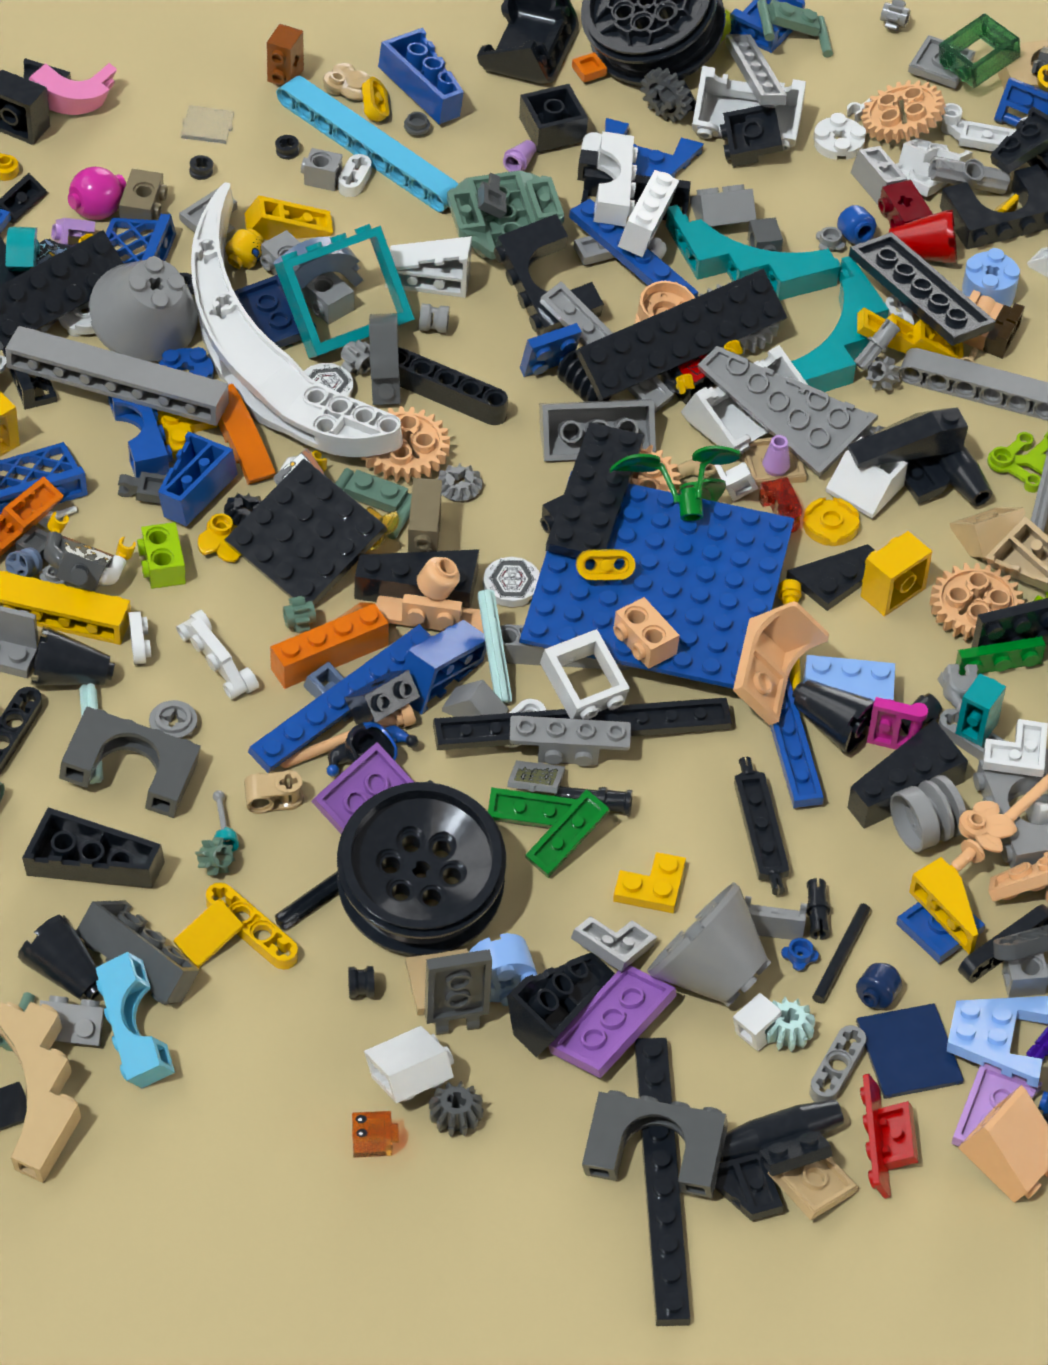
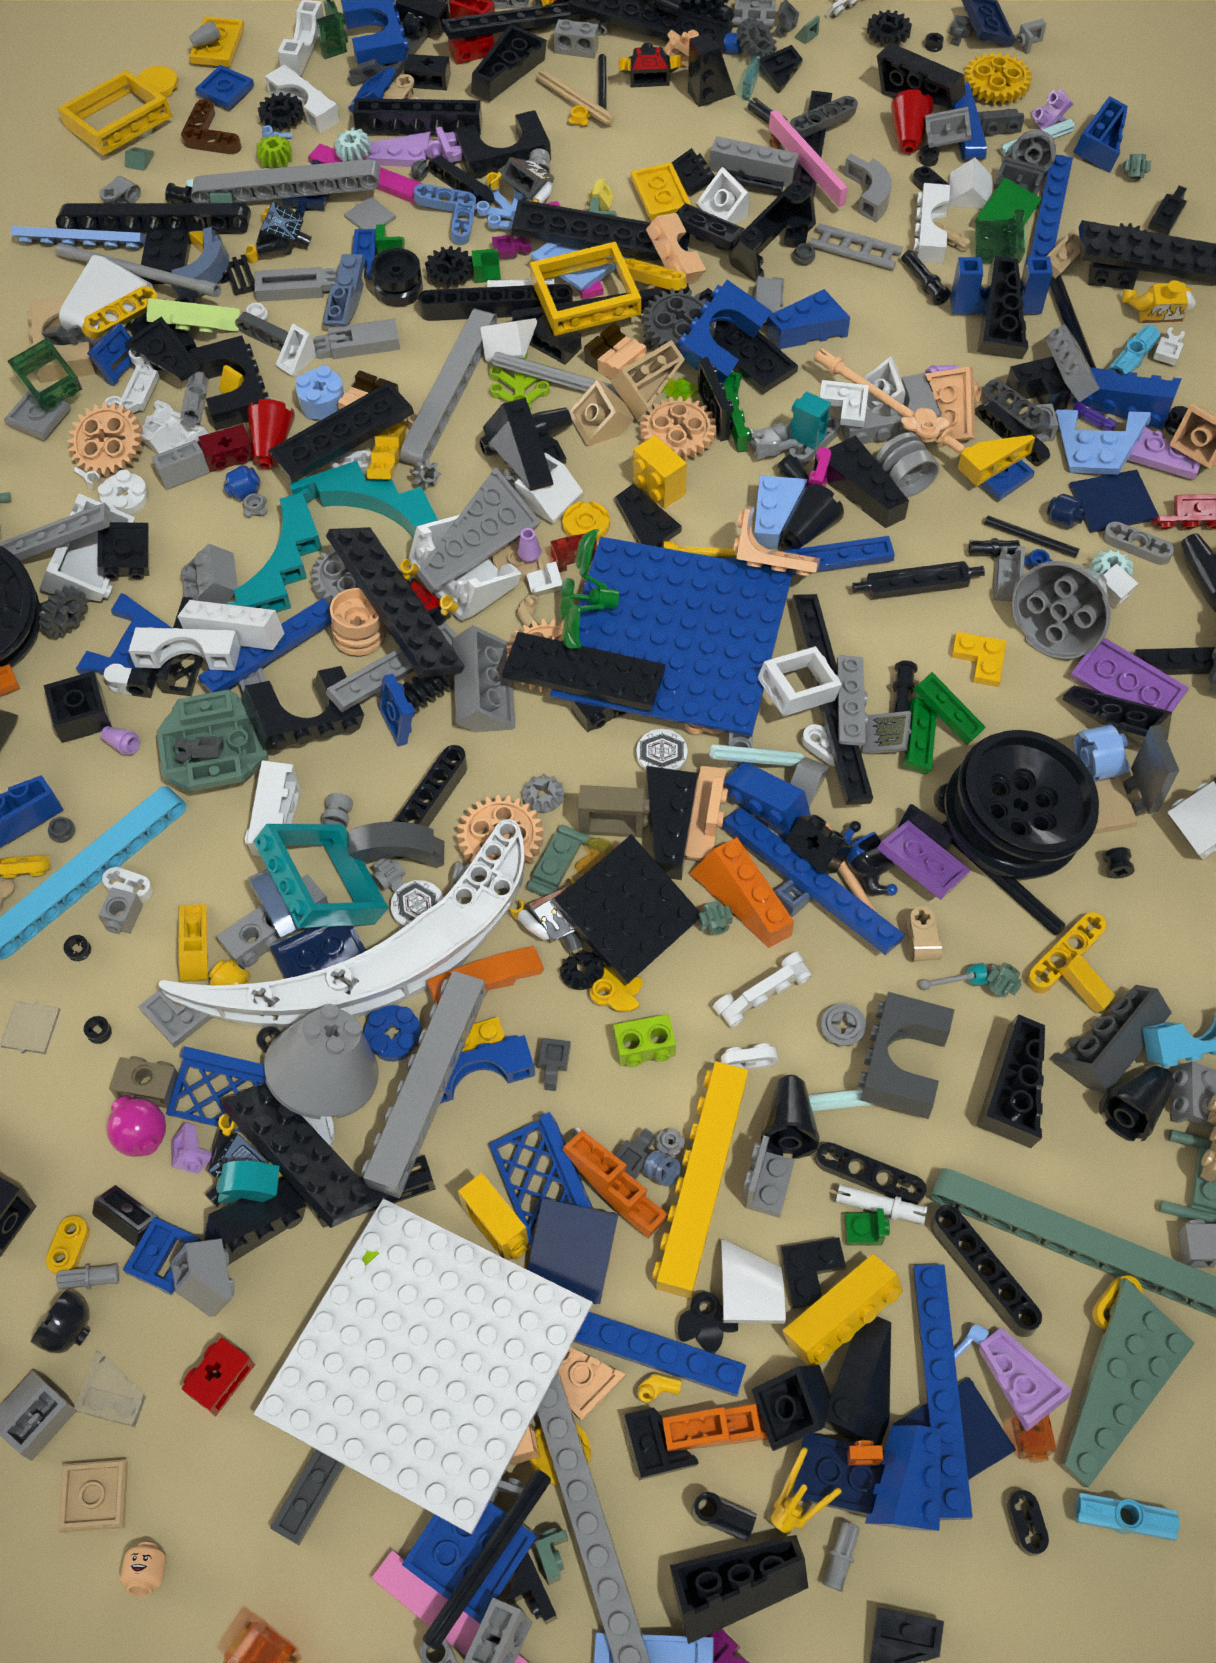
camera: 85 degrees left, 10 degrees up
(80, 562) = (672, 1105): torso -> none
(196, 479) = (549, 1011): blue wedge -> none
(438, 578) = (699, 787): light nougat head -> none
(604, 564) = (677, 661): yellow plate -> none
(616, 948) = (1058, 675): light grey plate -> none
(645, 633) = (758, 629): light nougat brick -> none
(765, 234) = (254, 549): dark grey brick -> none
(877, 344) = (407, 466): light grey axle -> none

